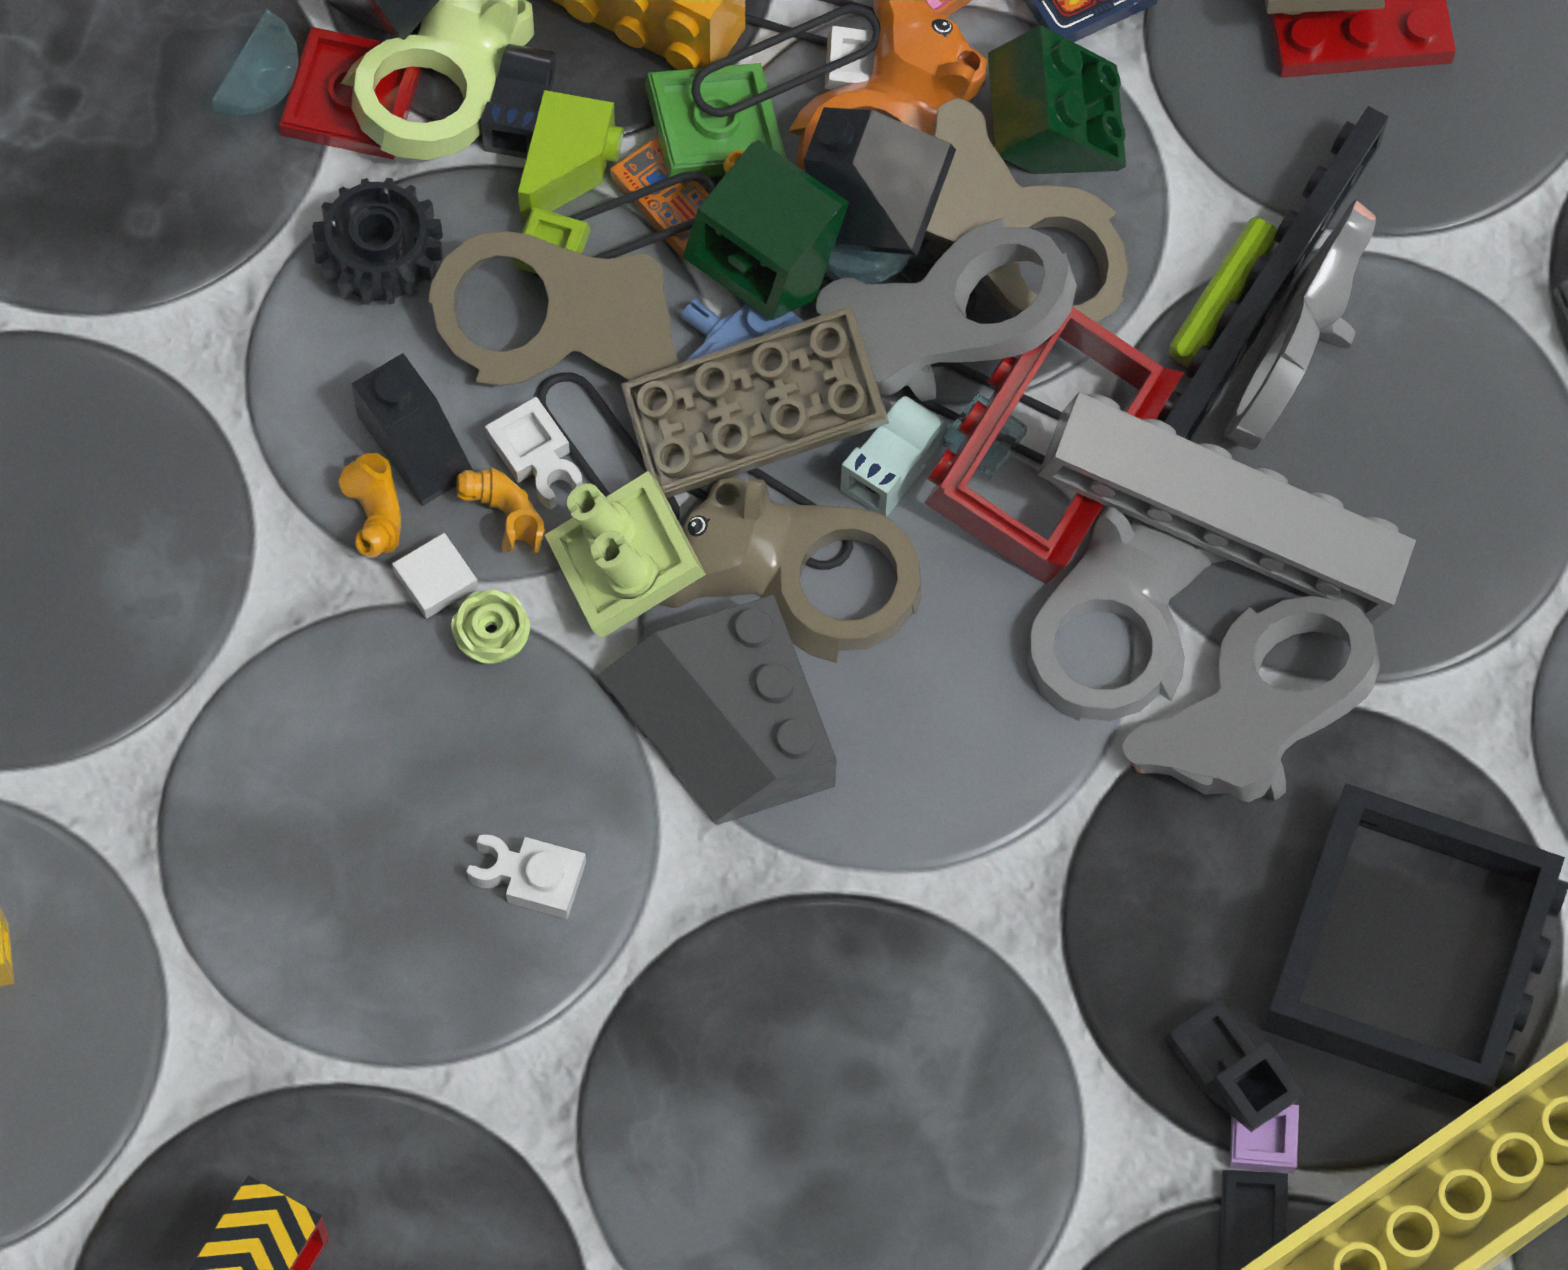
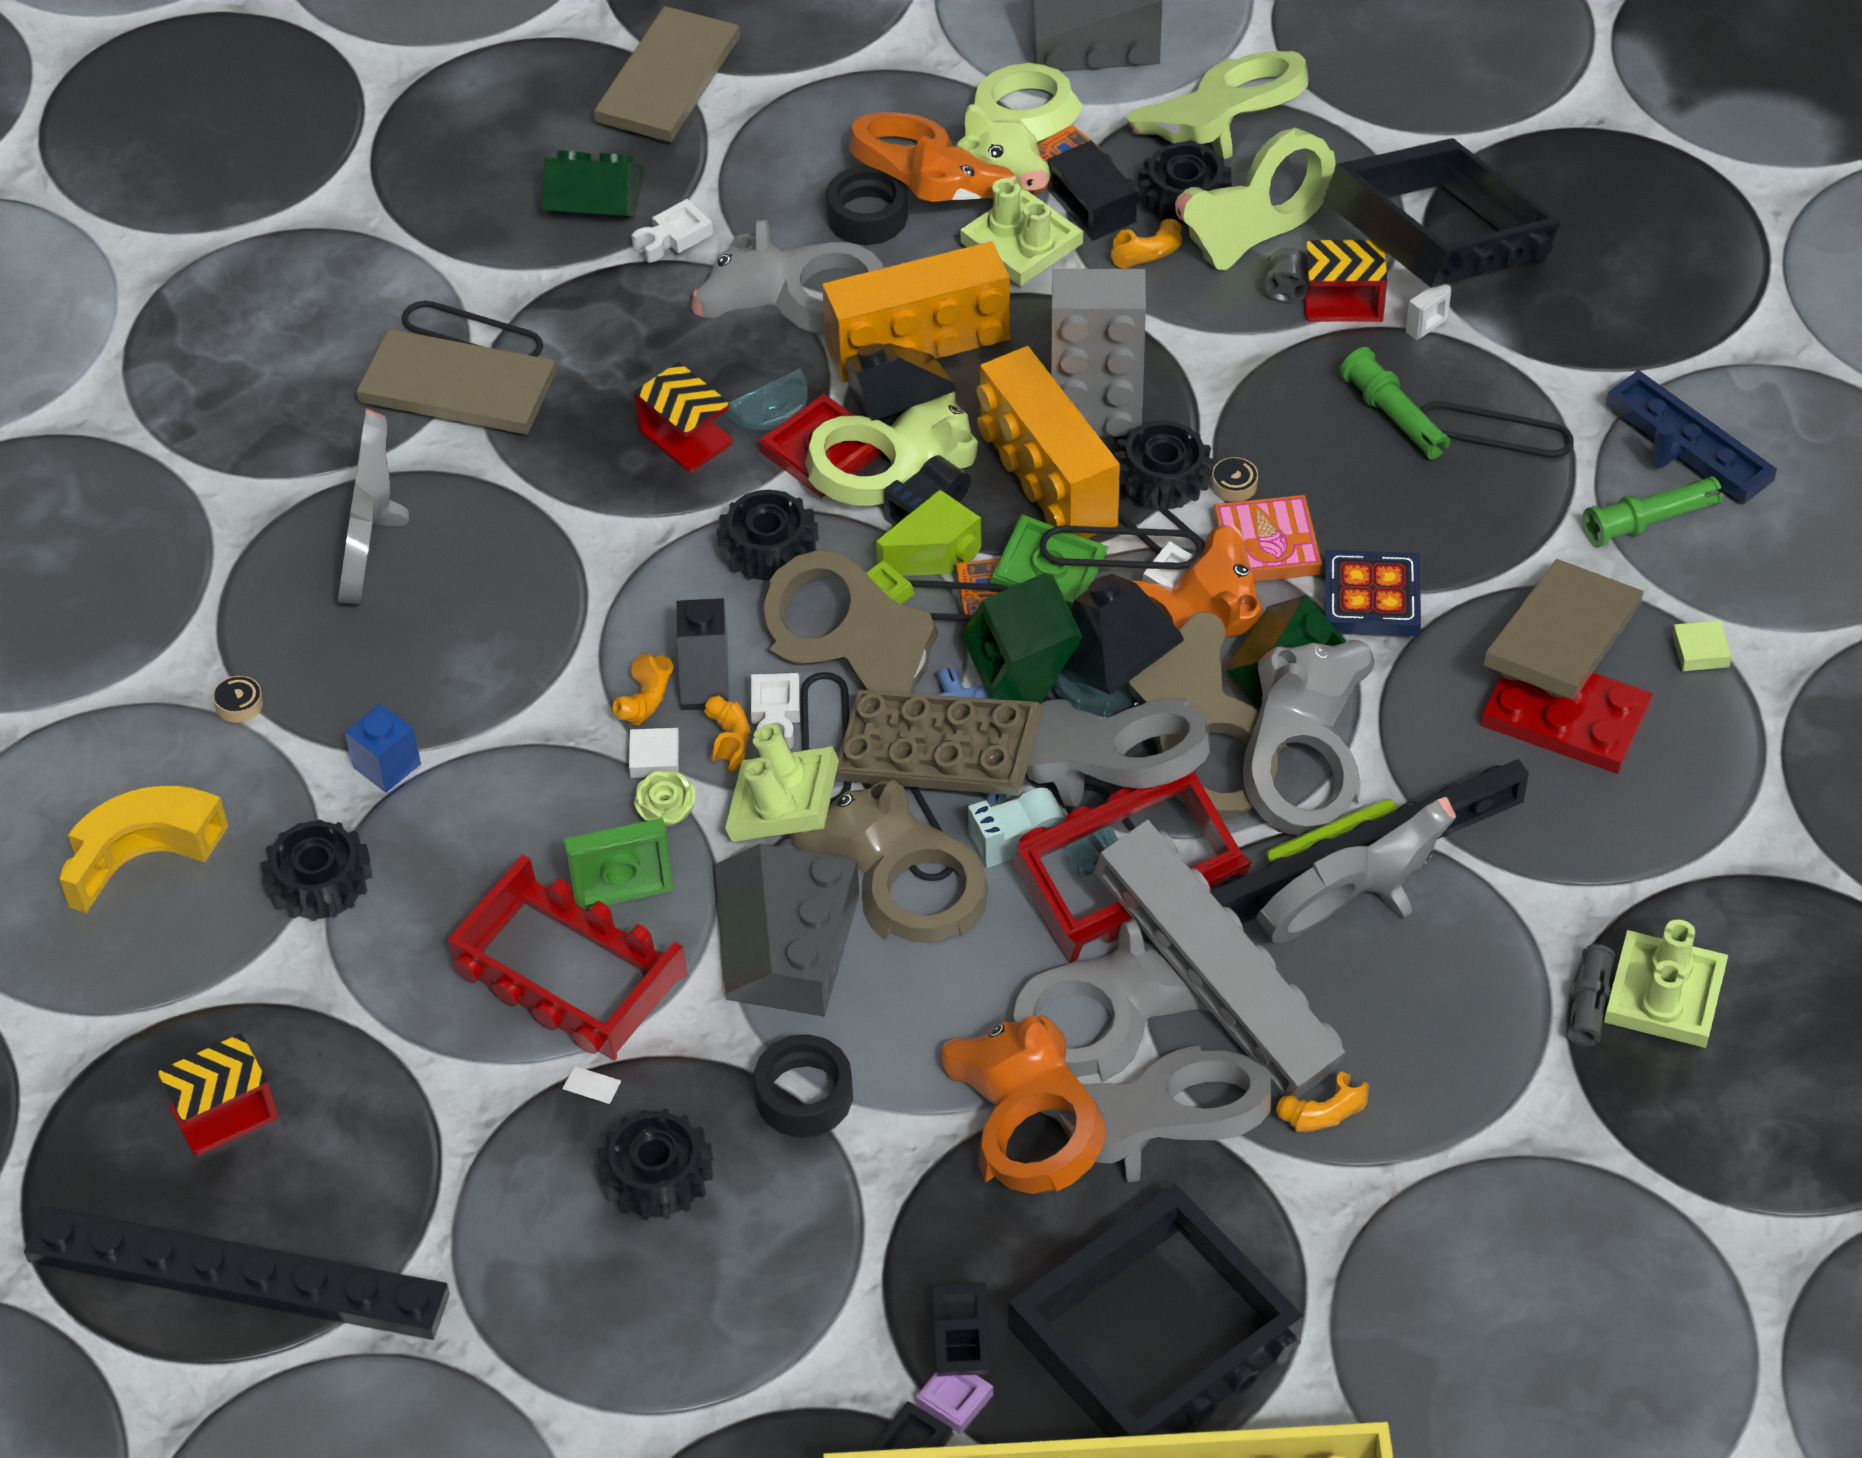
camera: 35 degrees right, 15 degrees down
(132, 737) = (383, 748): none -> blue brick
(155, 894) = (316, 870): none -> black gear
(177, 140) = (678, 415): none -> piece
(514, 739) = (619, 864): none -> bright green tile
(528, 820) = (597, 925): none -> red window
(538, 877) = (579, 968): white plate -> none
(644, 1005) = (592, 1084): none -> white sticker
(796, 1027) = (661, 1188): none -> black gear
(885, 836) = (803, 1052): none -> black tyre
(1108, 148) = (1300, 703): none -> light grey animal
(1112, 746) = (1022, 1073): none -> orange animal
(1414, 623) = (1315, 1116): none -> light orange piece

